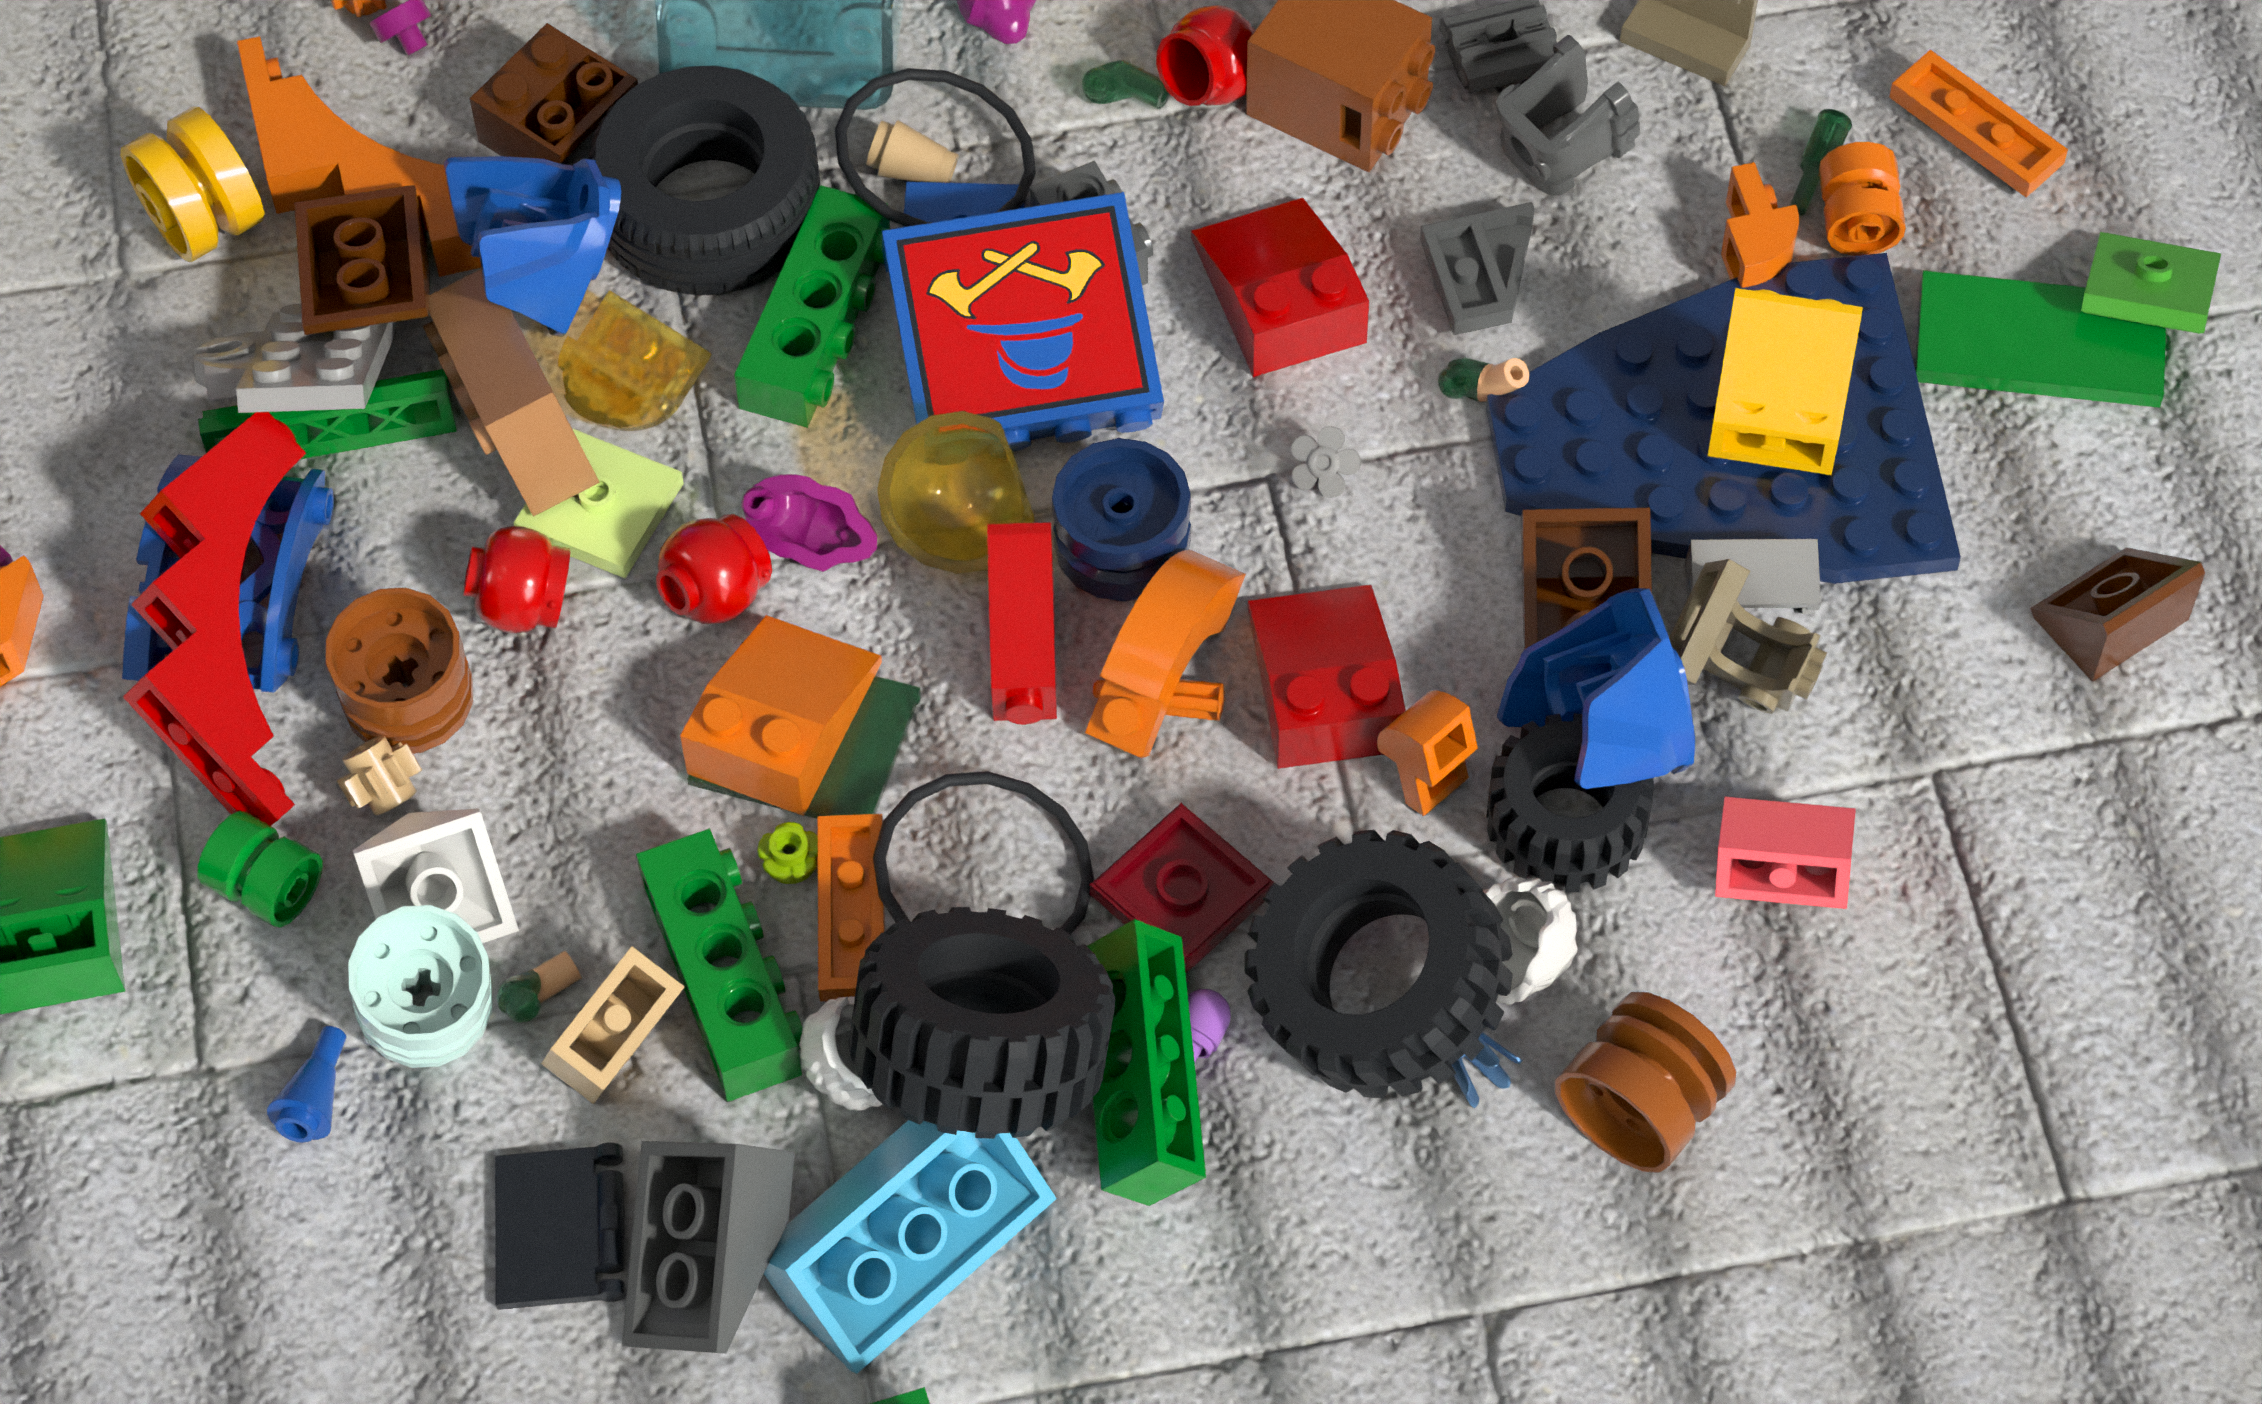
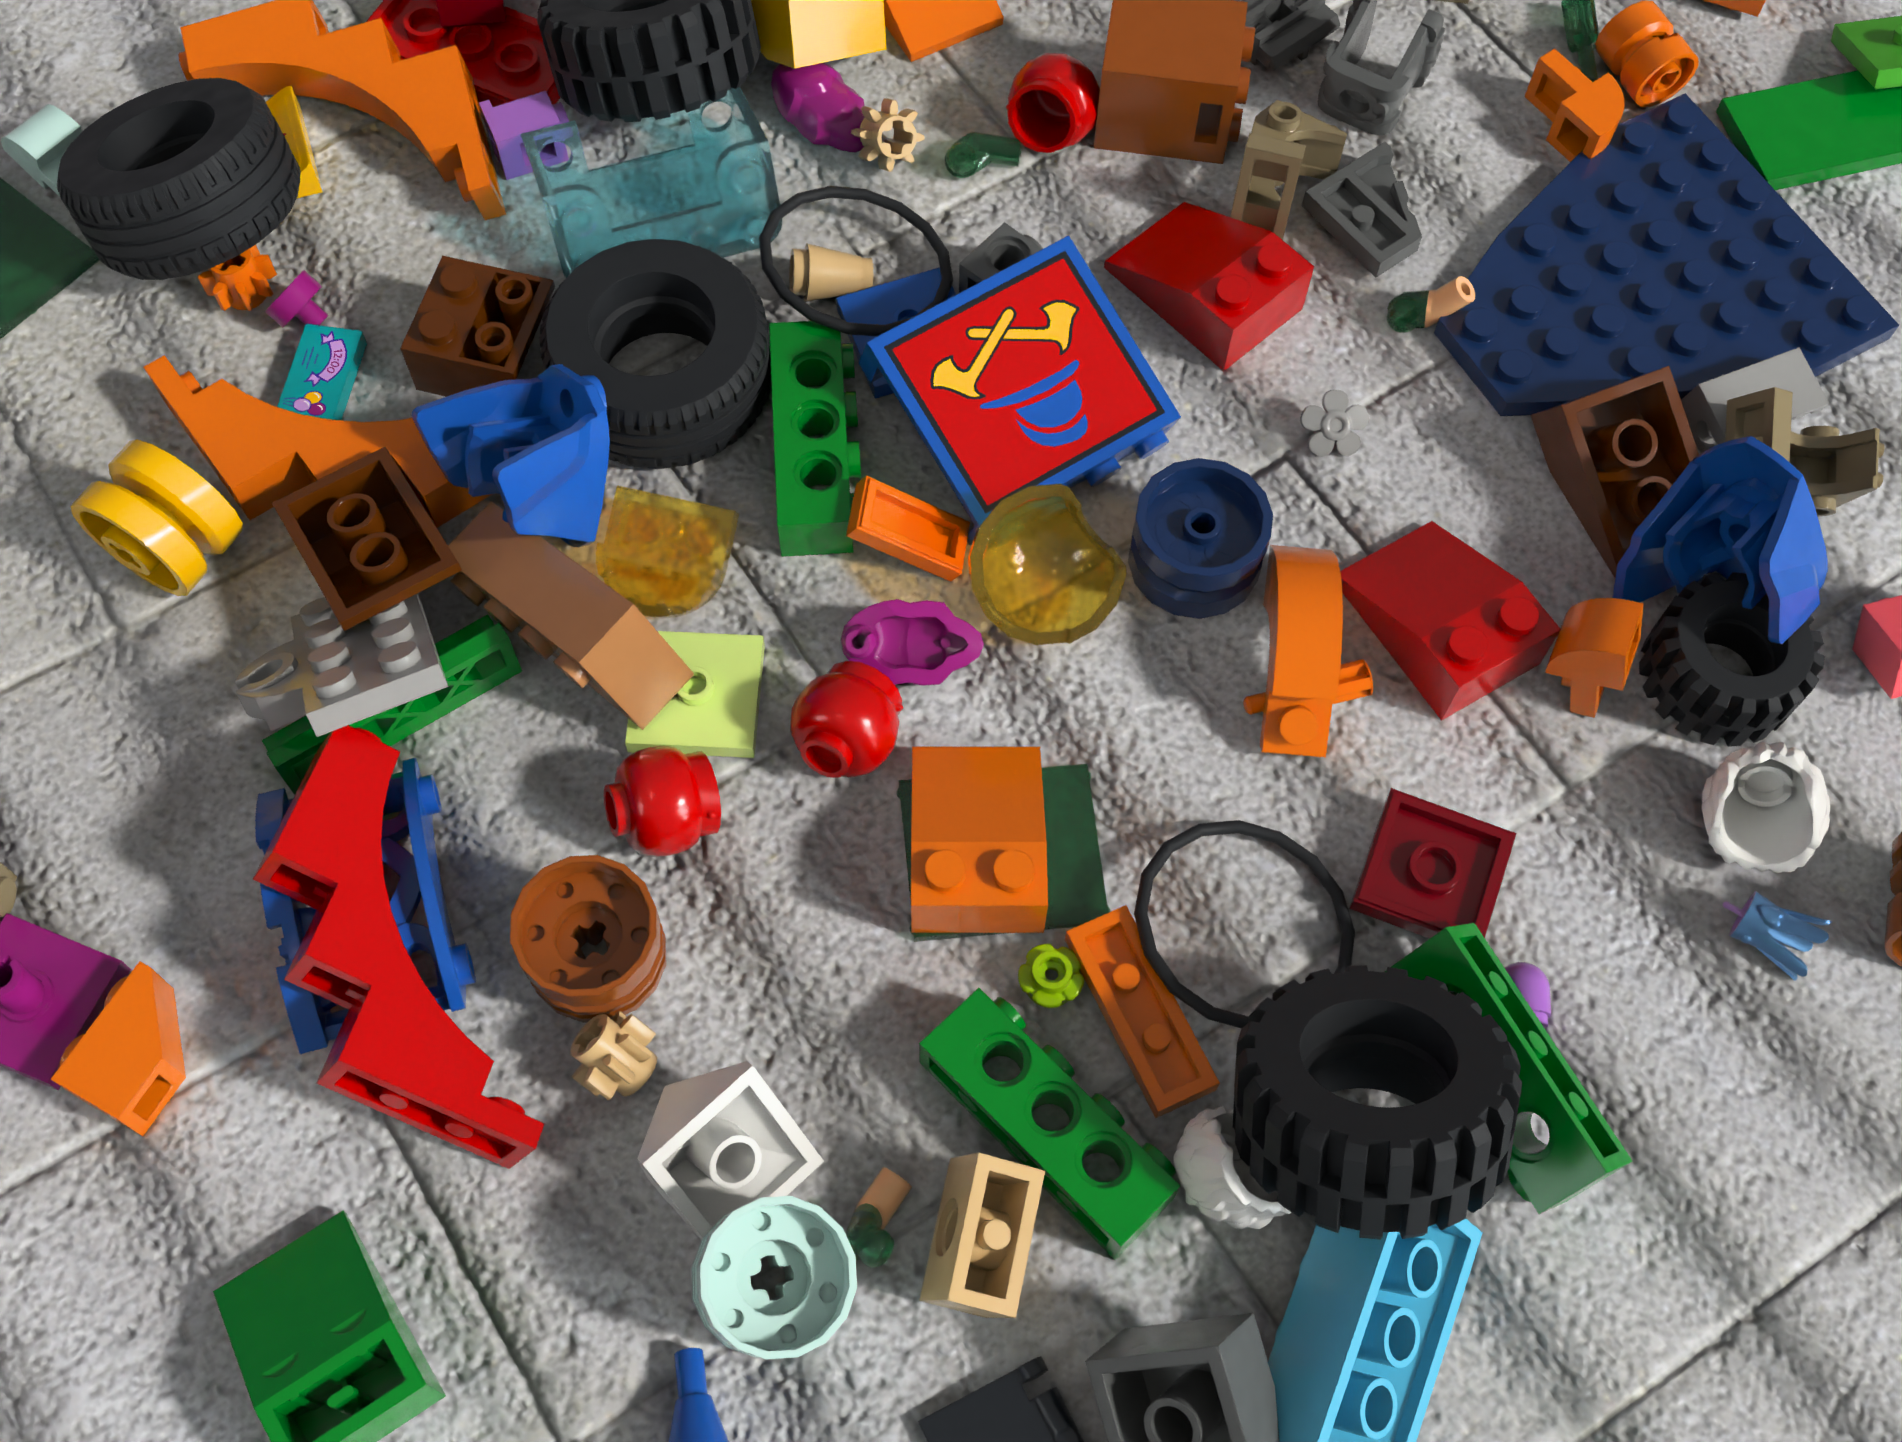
camera: 25 degrees left, 5 degrees up
(256, 866) = (526, 1205): green wheel -> none
(398, 98) = (323, 371): none -> teal tile
(851, 414) = (908, 528): none -> orange tile
(1022, 622) = (1163, 668): red slope -> none
(1043, 50) = (884, 120): none -> tan gear
(1325, 907) = (1746, 808): black tyre -> none
(1403, 175) = (1278, 151): none -> dark tan tile
(1784, 380) = (1722, 214): yellow slope -> none

